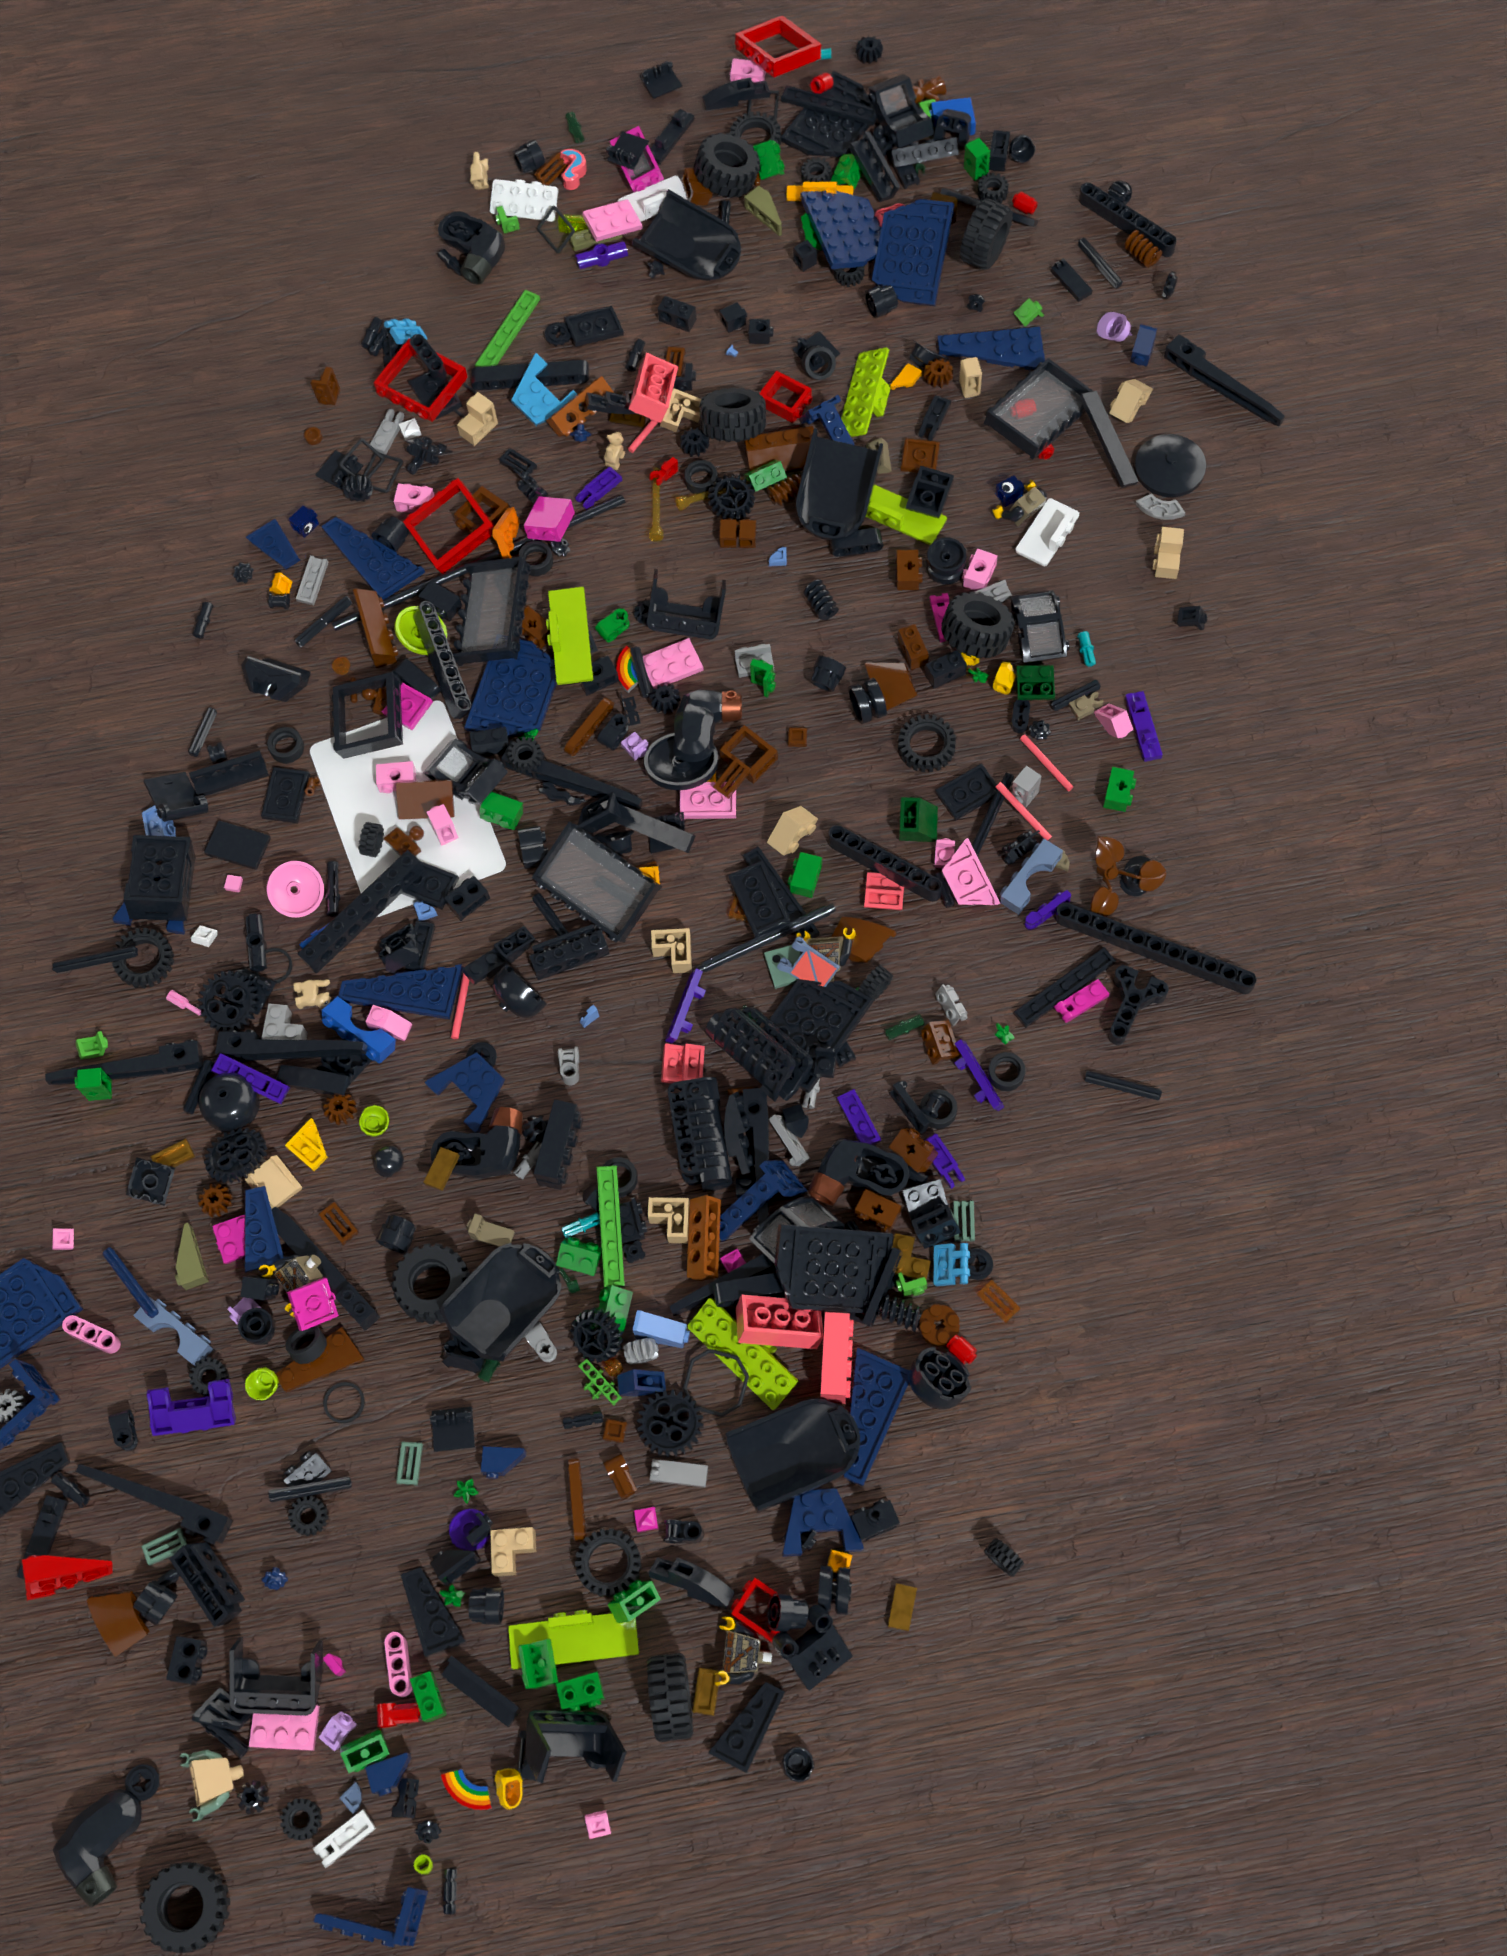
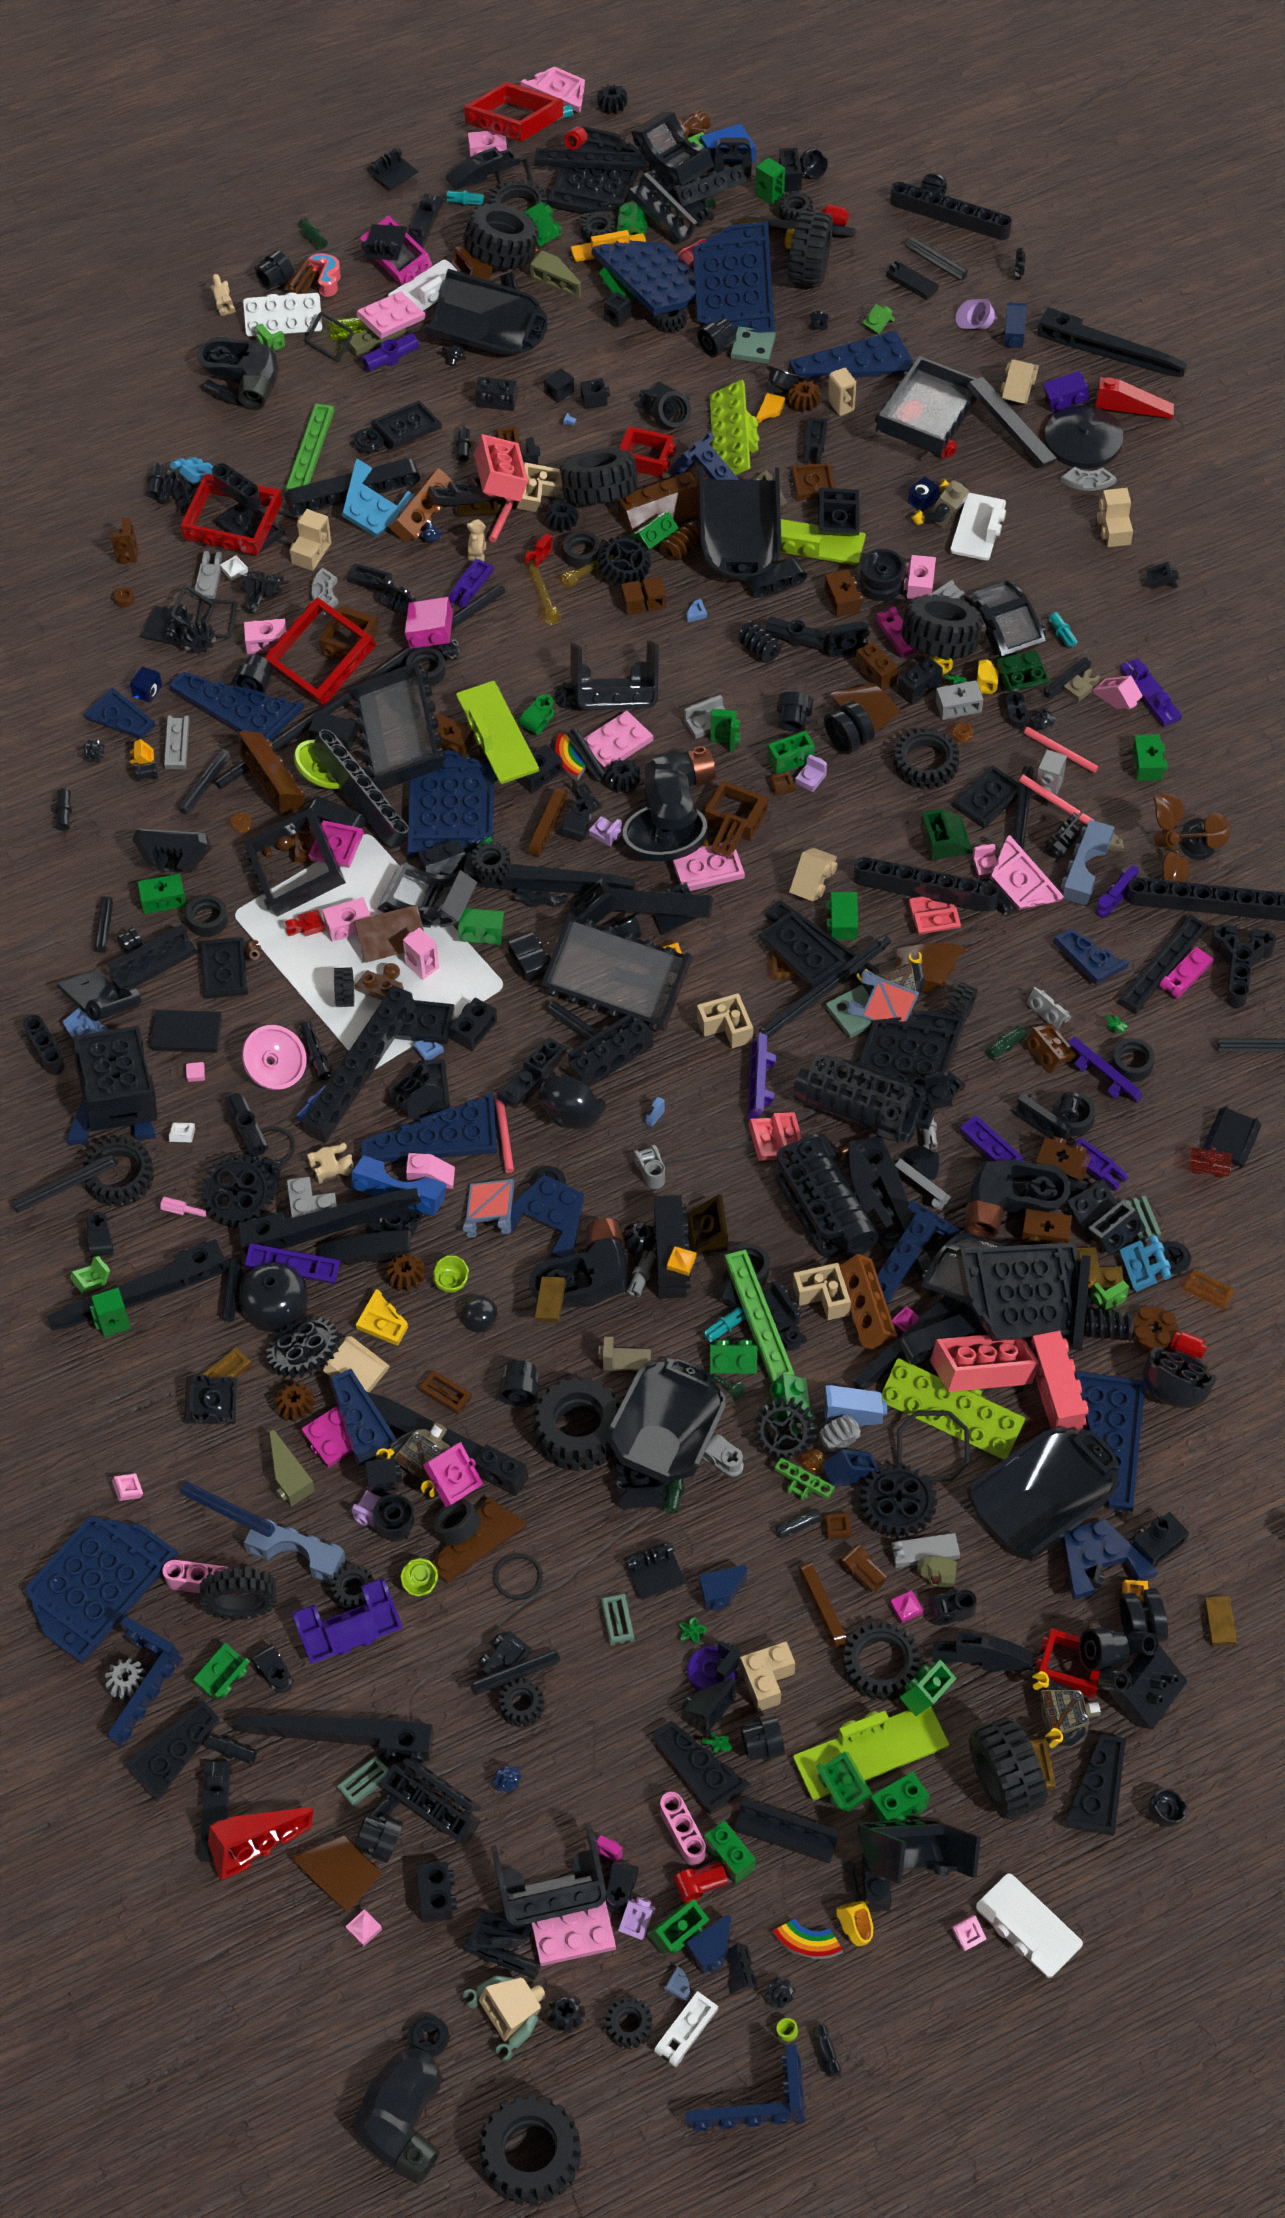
camera: 20 degrees left, 10 degrees down
(82, 1421) = (220, 1672): none -> green bracket
(109, 1015) = (99, 1237): none -> black piece
(110, 1361) = (216, 1586): none -> black tyre
(117, 822) = (47, 1052): none -> black beam
(123, 1673) = (364, 1928): none -> bright pink tile
(255, 716) = (162, 893): none -> green brick
(334, 1697) = (621, 1883): none -> black piece
(365, 772) = (308, 923): none -> red plate
(427, 1065) = (487, 1203): none -> flag
(474, 469) = (323, 586): none -> light grey tile
(505, 531) = (385, 644): orange wing -> none
(555, 1165) = (681, 1261): none -> light orange tile
(598, 1133) = (708, 1227): none -> dark brown slope
(648, 1832) = (1029, 1925): none -> white bracket
(681, 1497) = (938, 1571): none -> olive rock
(713, 119) = (465, 197): none -> teal axle
(811, 712) = (790, 752): none -> green brick
(825, 734) = (812, 773): none -> lavender bracket
(827, 28) = (560, 85): none -> bright pink wing
(863, 604) = (796, 633): none -> black piece
(894, 616) = (847, 639): none -> black slope
(912, 314) = (753, 345): none -> sand green tile
(967, 721) = (961, 728): none -> clear orange plate
(979, 700) = (959, 700): none -> light grey brick
(1002, 966) = (1090, 959): none -> dark blue wing
(1038, 1185) = (1210, 1162): none -> clear red hips
(1066, 1166) = (1233, 1135): none -> black slope
(1142, 249) = (976, 236): reddish brown piece -> none
(1168, 419) = (1066, 391): none -> dark purple brick
(1222, 439) = (1123, 397): none -> red wedge

